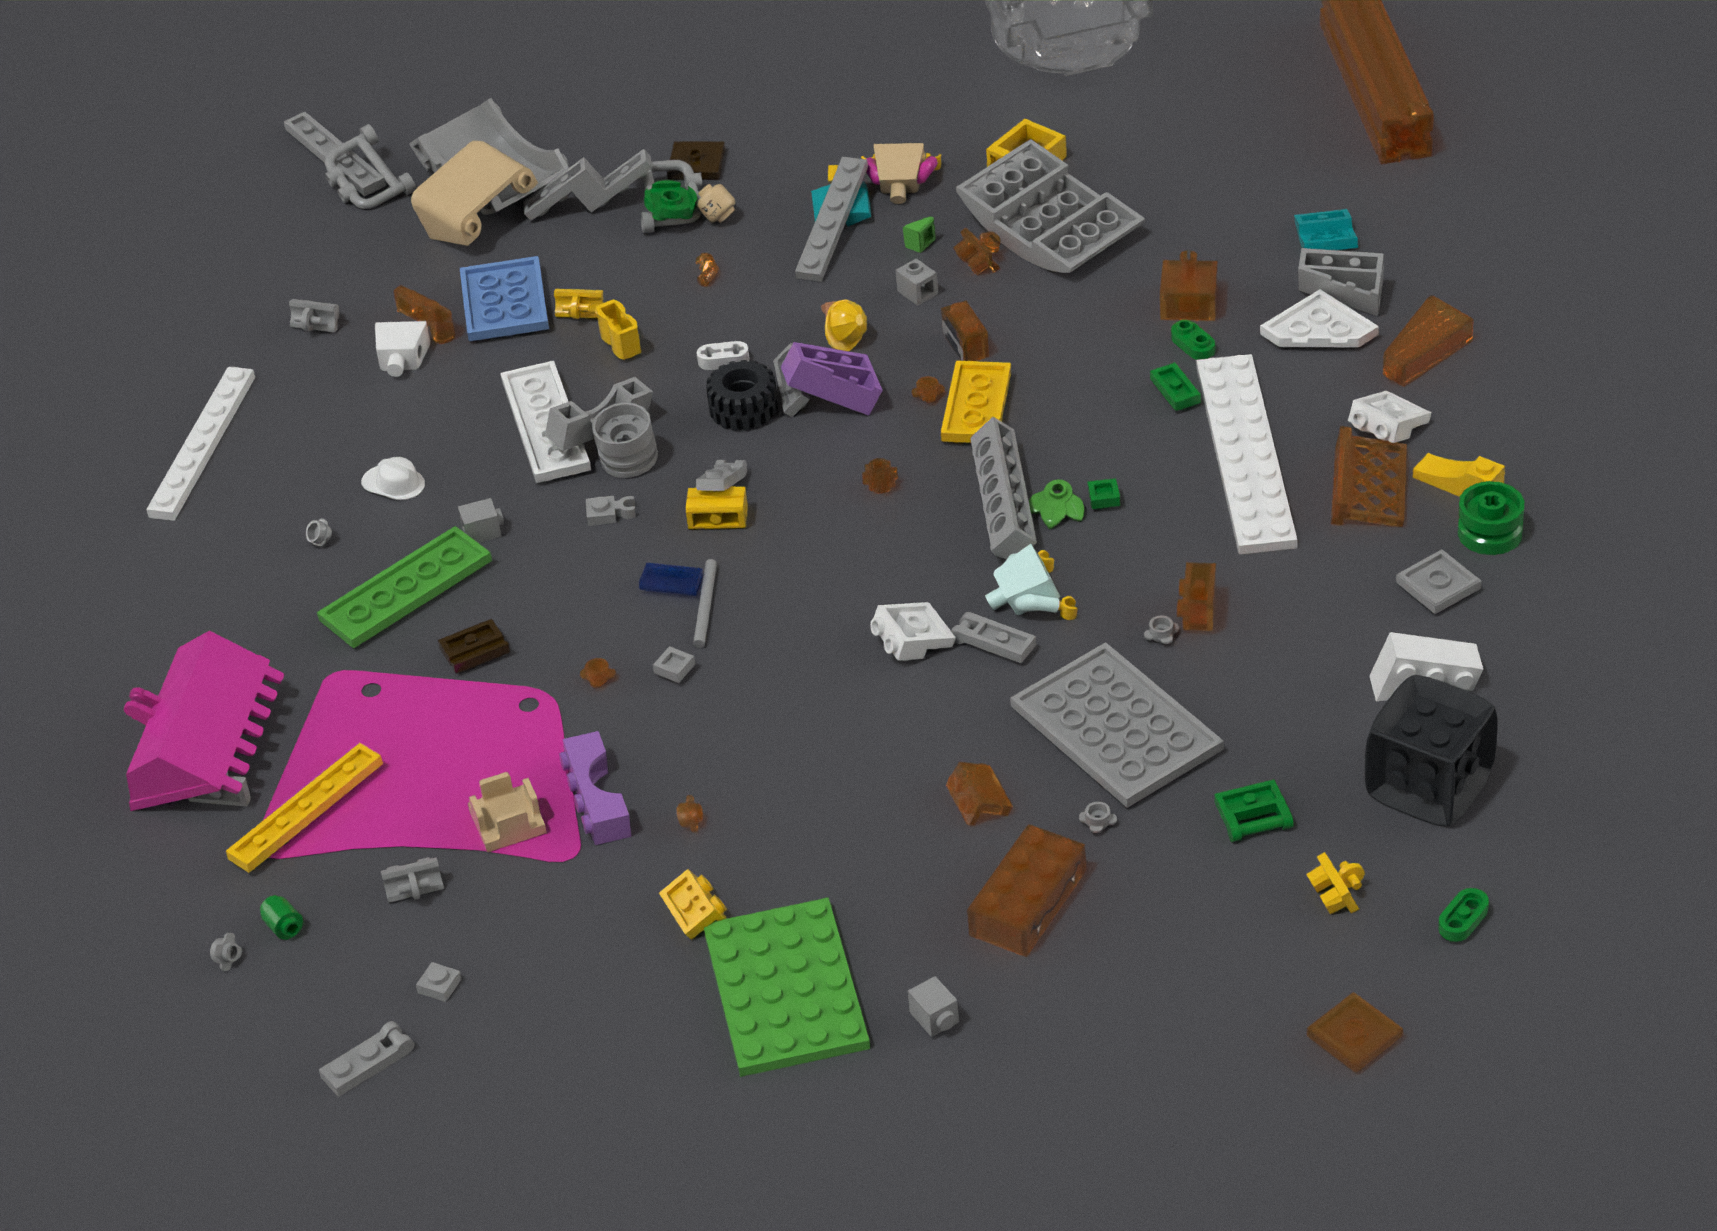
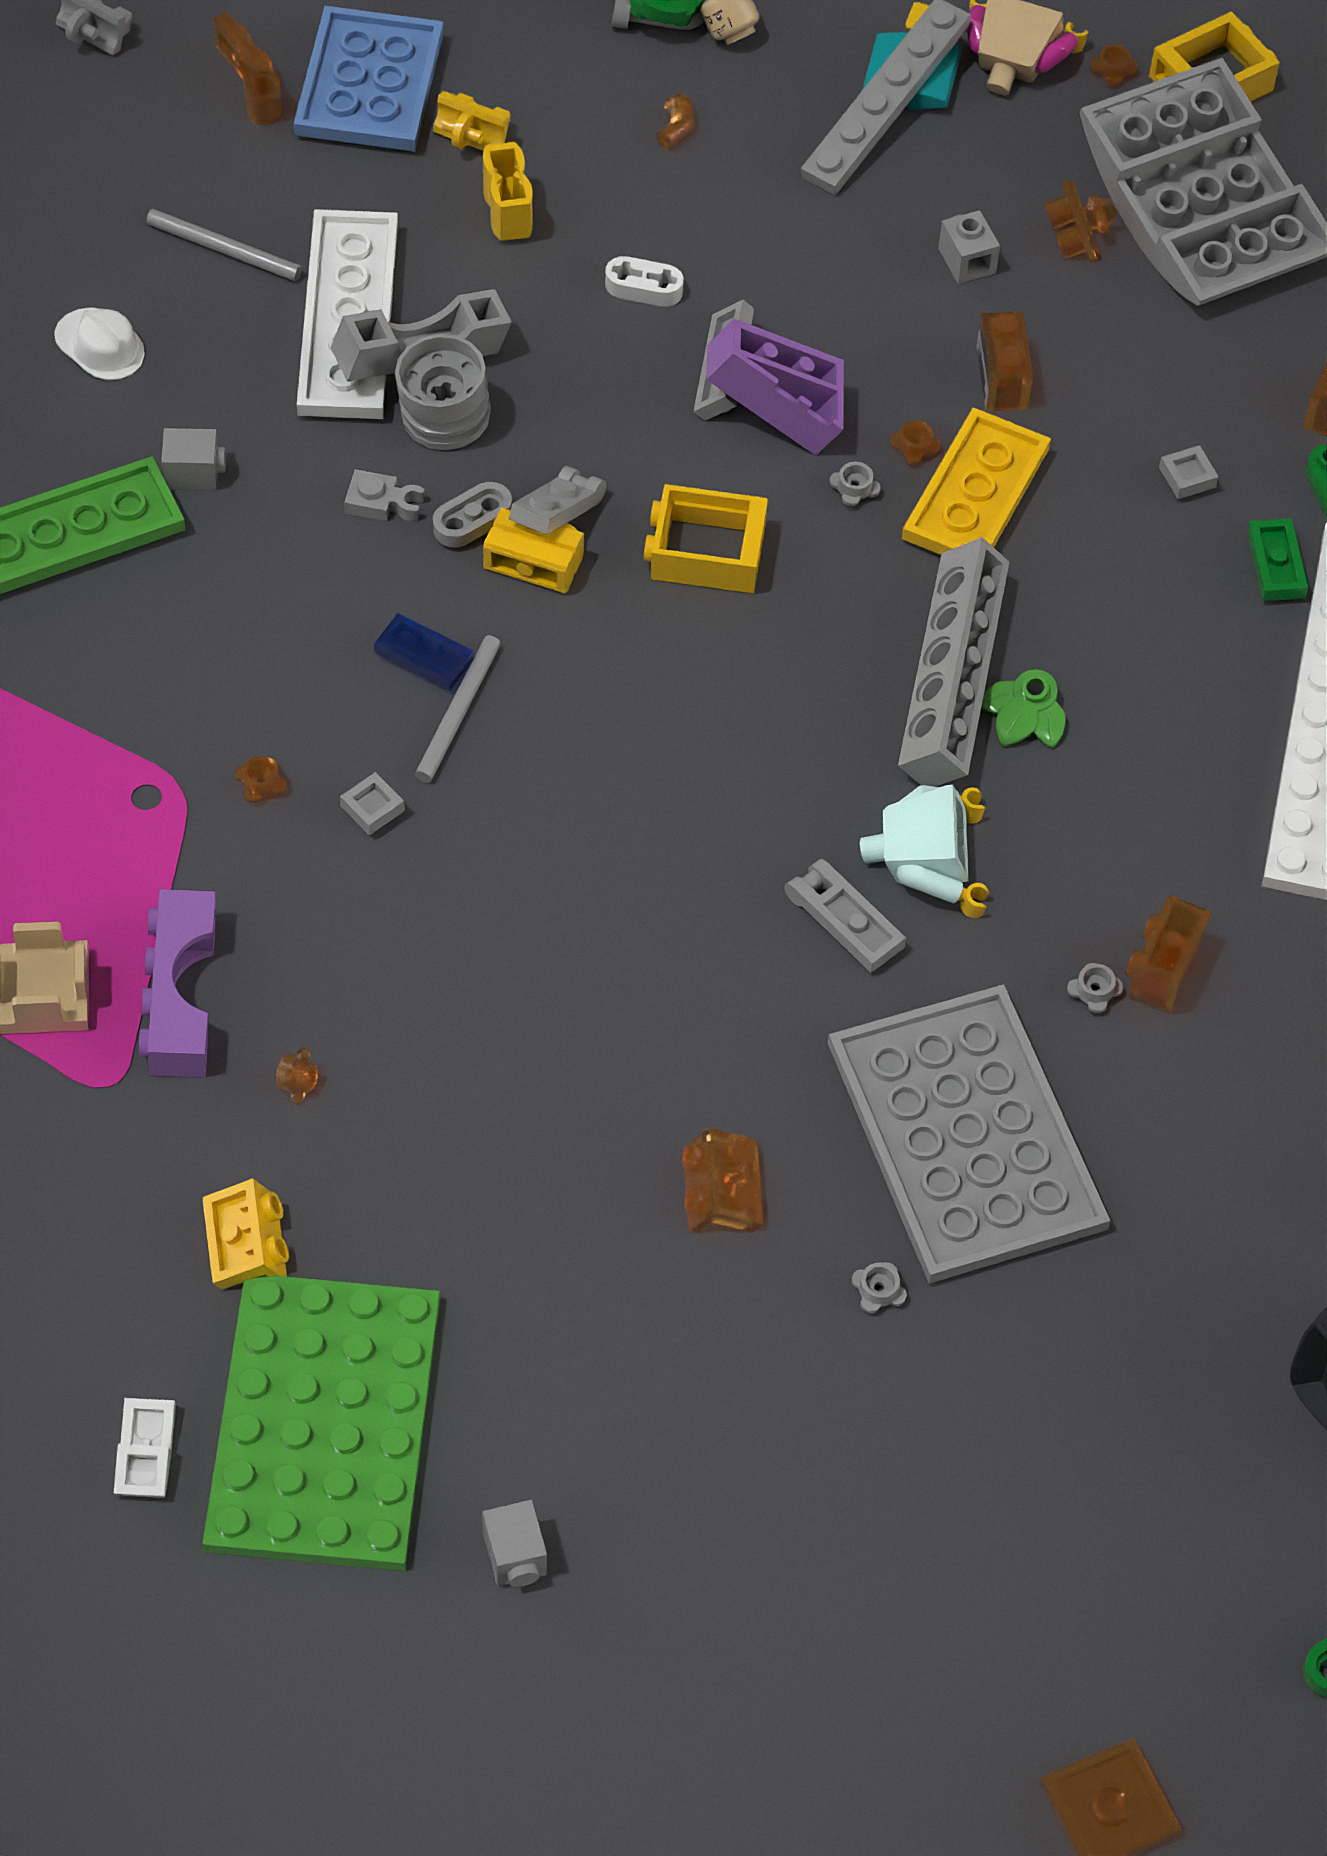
camera: 10 degrees right, 15 degrees up
(401, 345) = (193, 114): white torso -> none
(449, 409) = (224, 245): none -> light grey bar
(473, 646) = (103, 672): dark brown plate -> none
(668, 501) = (469, 514): none -> light grey plate
(679, 1031) = (145, 1448): none -> white slope
(742, 395) = (646, 340): black tyre -> none
(821, 456) = (708, 509): none -> yellow window
(844, 324) = (833, 289): yellow piece -> none
(879, 475) = (787, 573): clear orange gear -> none
(900, 420) = (857, 474): none -> light grey plate
(910, 629) = (731, 863): white plate -> none
(919, 234) = (1004, 163): bright green slope -> none
(963, 167) = (1114, 64): none -> clear orange plate
(1026, 890) = (726, 1384): clear orange brick -> none
(1102, 358) = (1188, 472): none -> light grey plate
(1103, 493) = (1101, 715): green plate -> none
(1253, 802) = (1114, 1342): green plate -> none
(1339, 896) = (1176, 1514): yellow hips -> none

